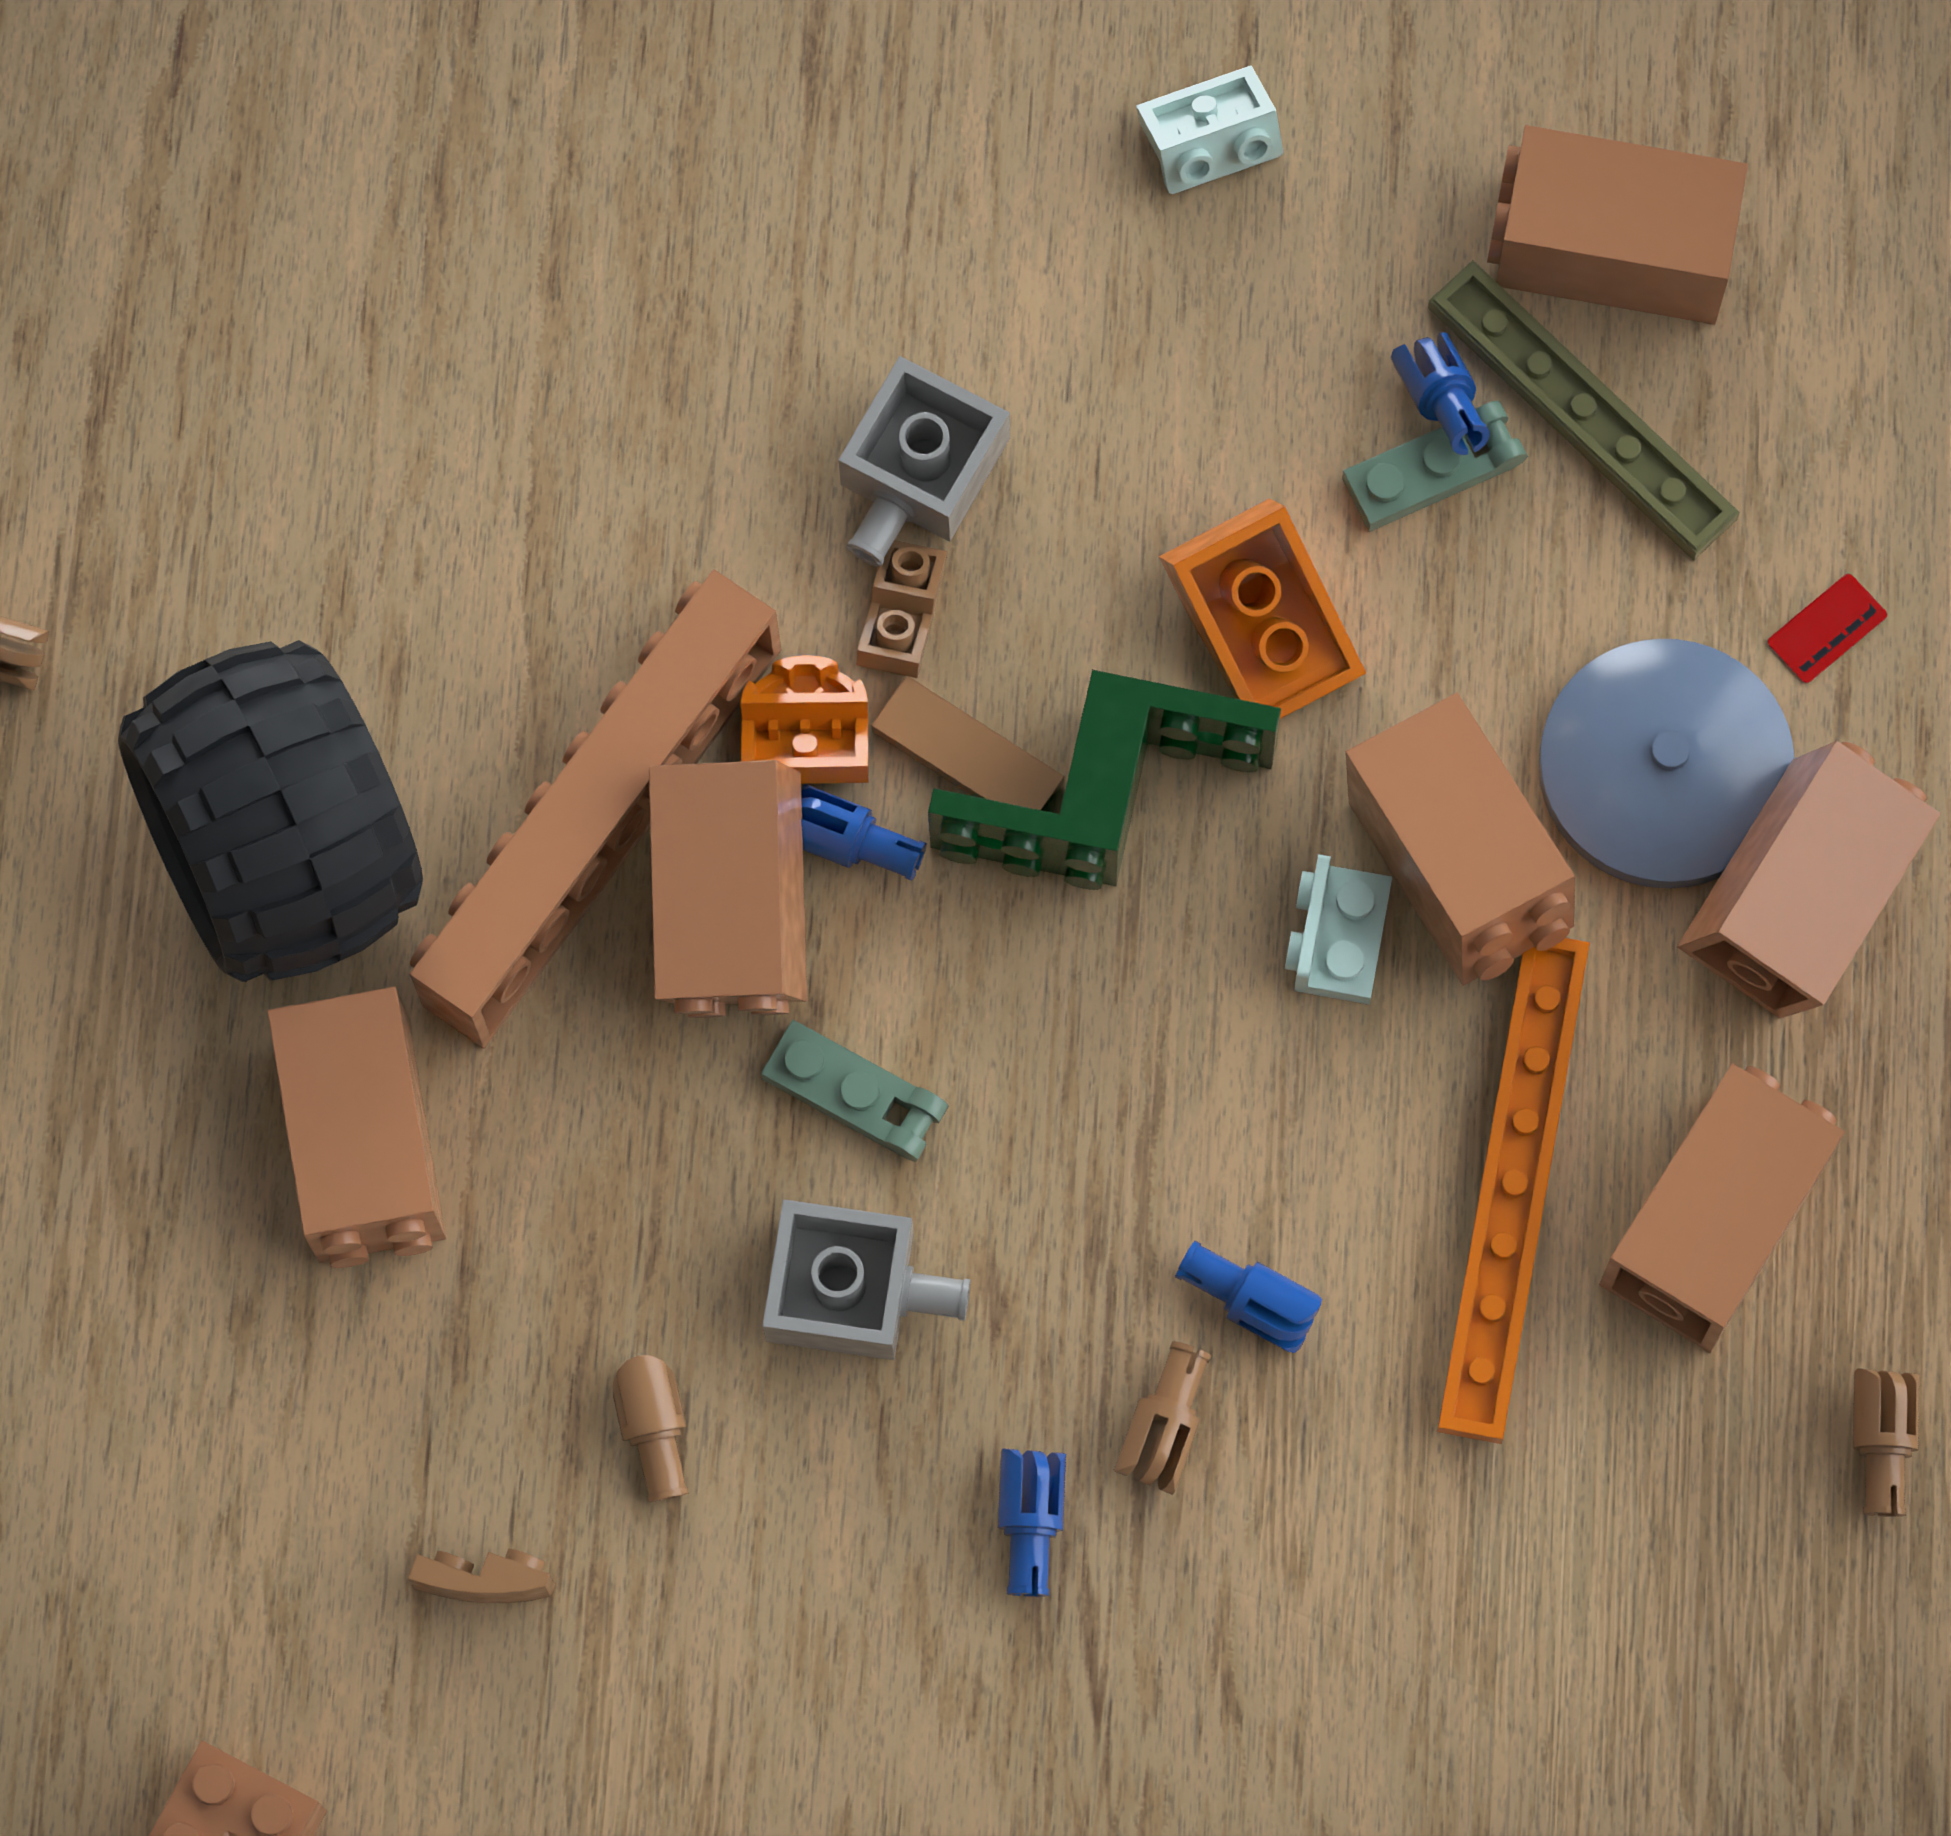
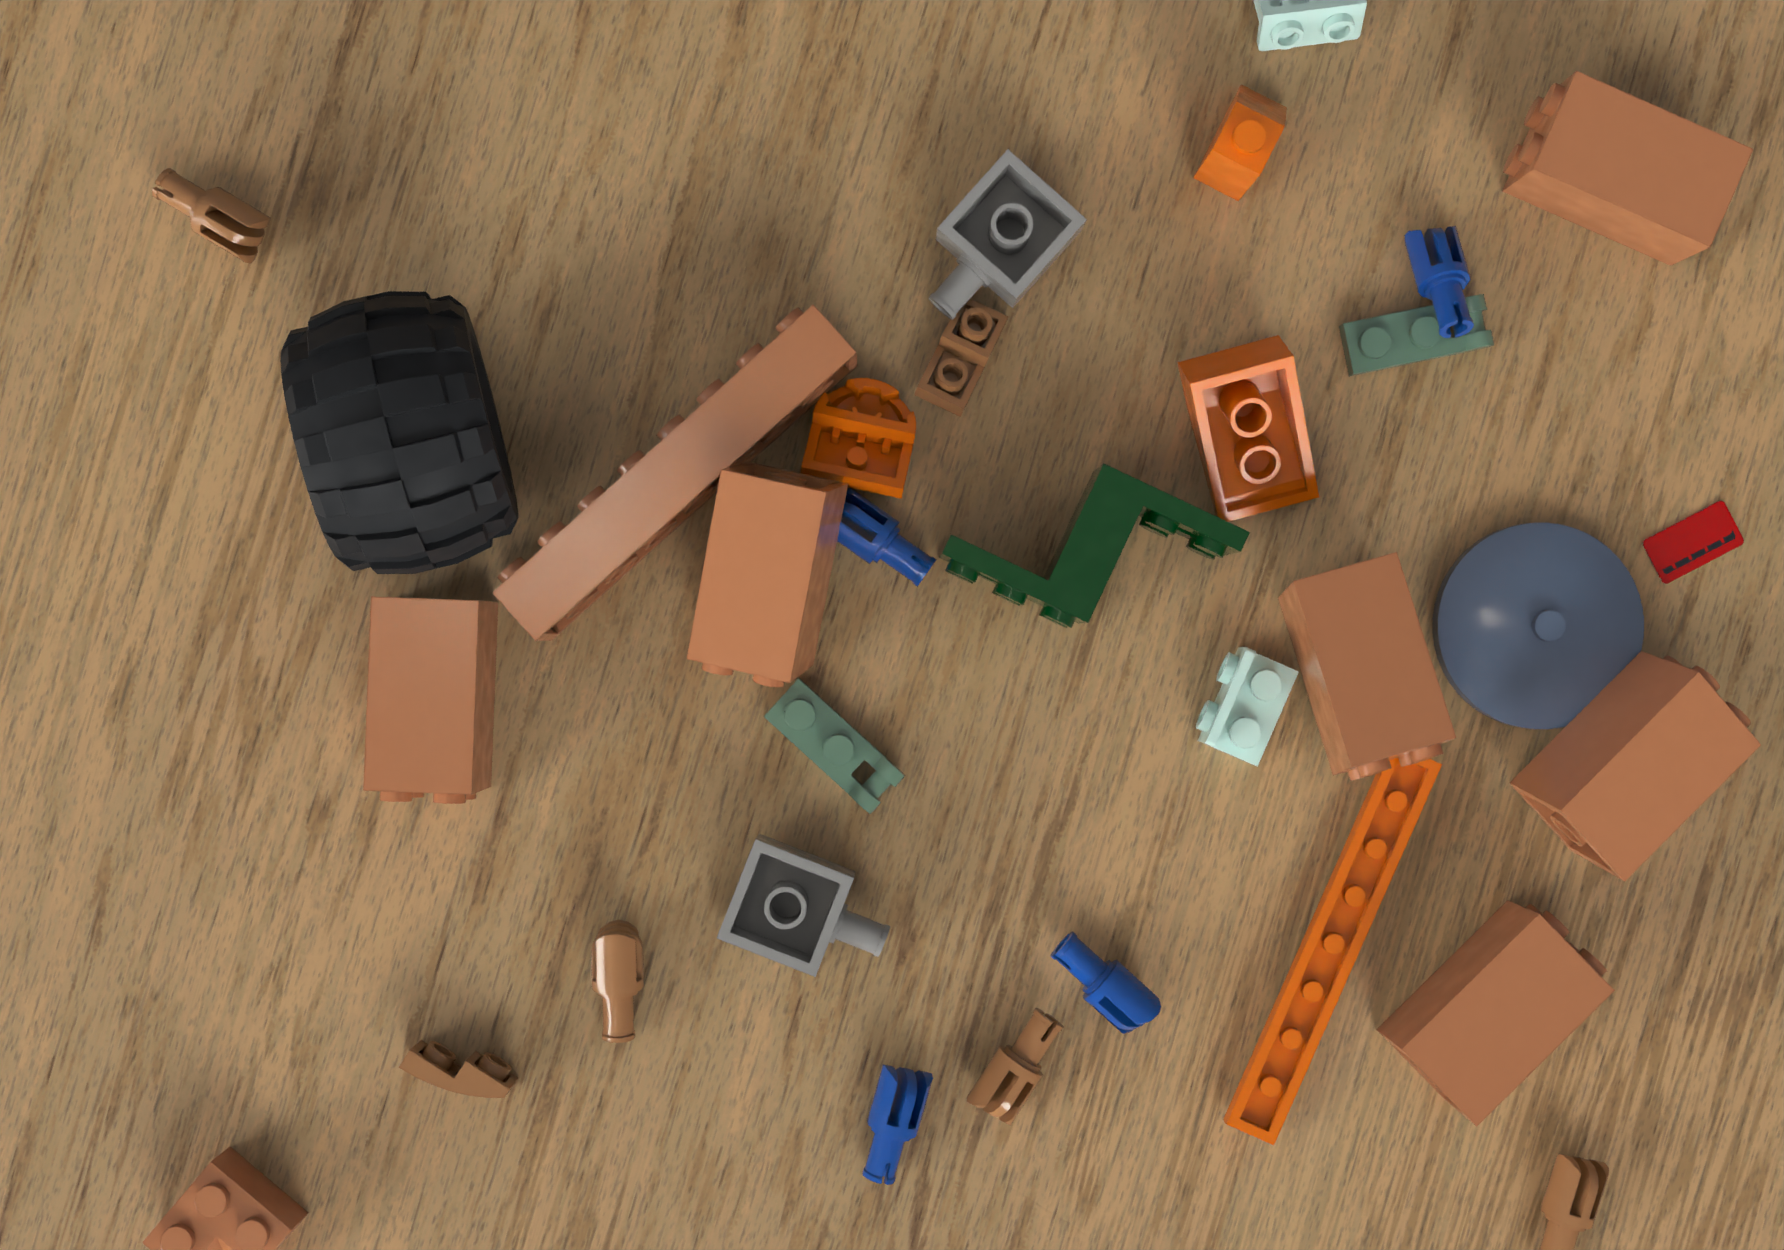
camera: 15 degrees right, 15 degrees up
(964, 749) = (986, 489): medium nougat tile -> none
(1169, 297) = (1242, 143): none -> orange slope
(1583, 410) = (1547, 314): olive tile -> none

